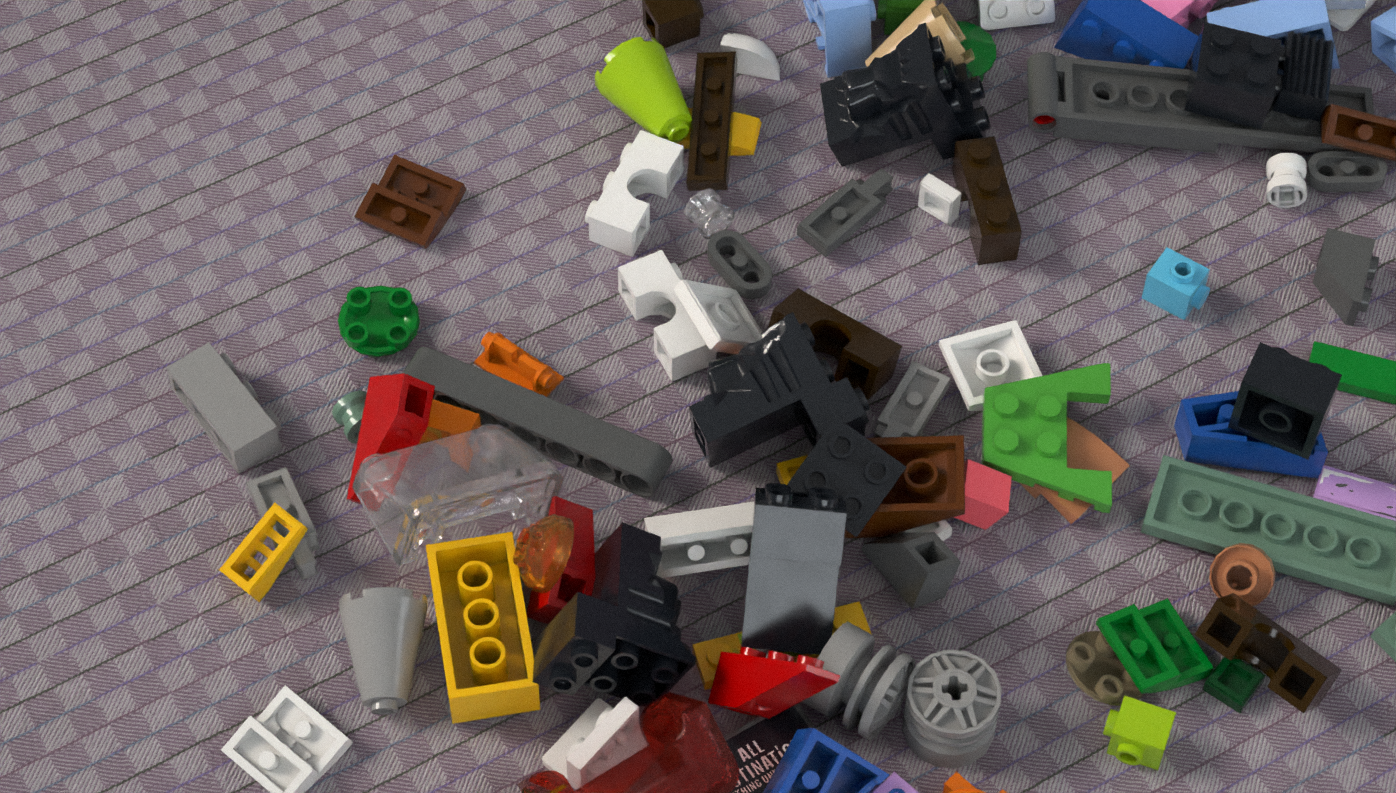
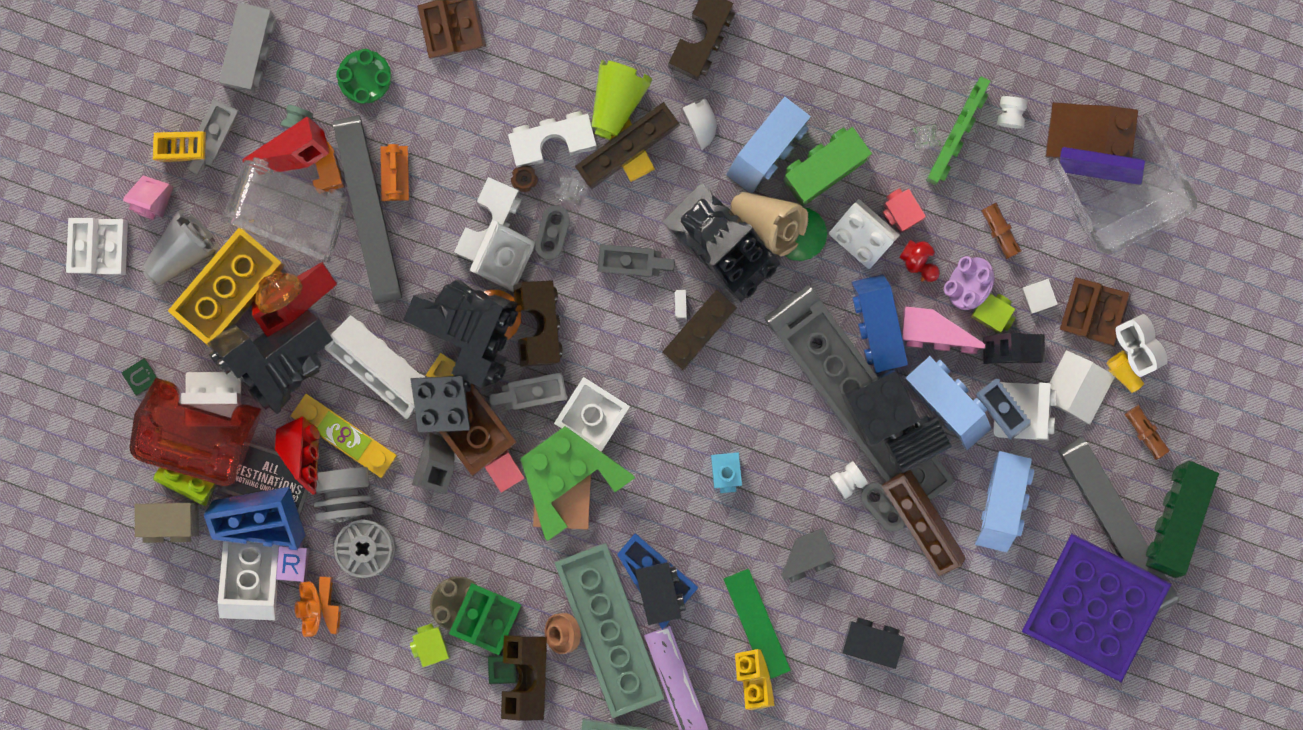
camera: 55 degrees right, 30 degrees up
(294, 628) = (149, 197): none -> bright pink slope
(649, 242) = (524, 186): none -> reddish brown plate
(793, 569) = (367, 417): brick -> none

